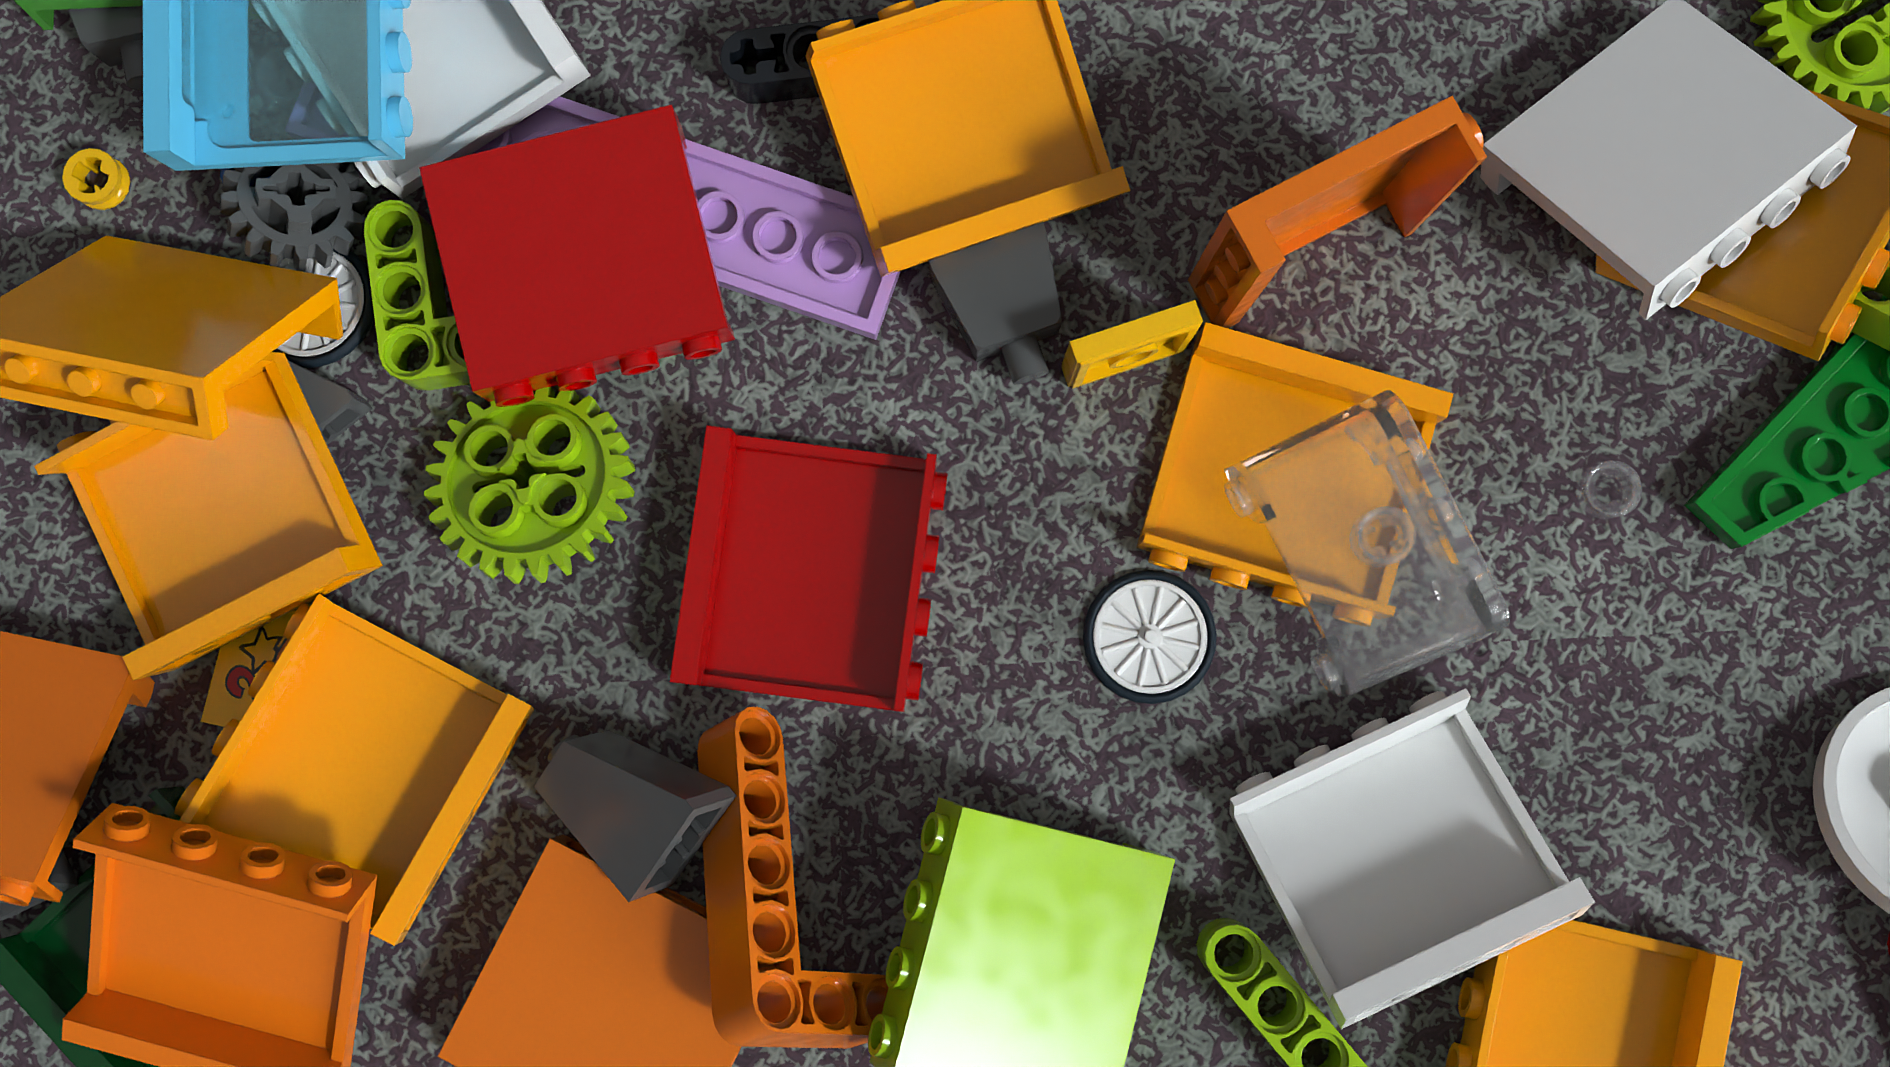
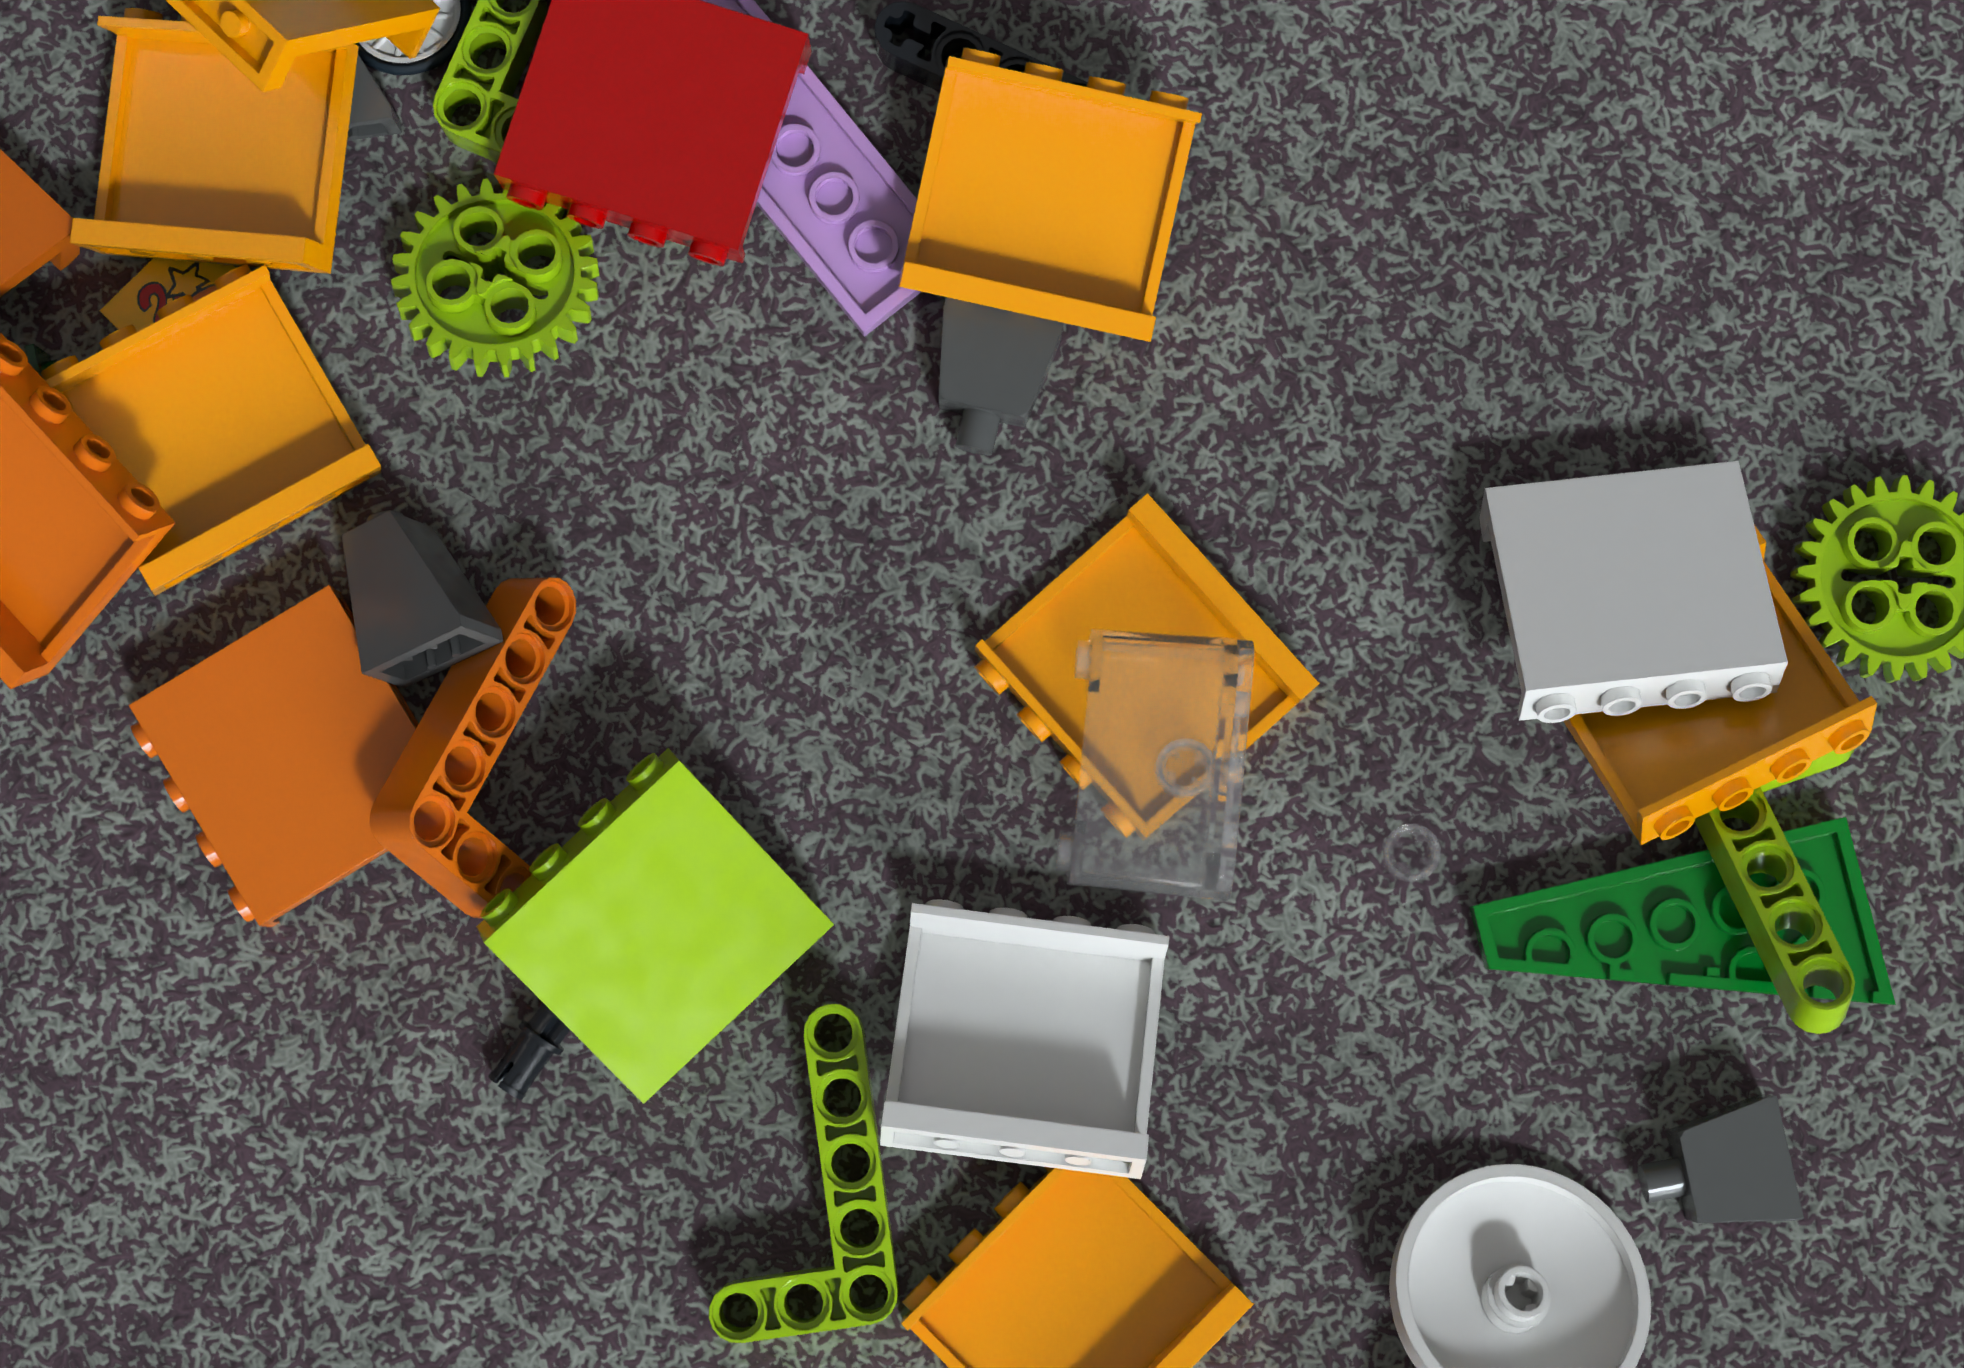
camera: 30 degrees right, 0 degrees up
(807, 571) = (681, 497): red panel -> none
(1130, 344) = (1069, 473): yellow tile -> none
(1149, 636) = (937, 733): white wheel -> none
(1405, 167) = (1297, 451): orange panel -> none

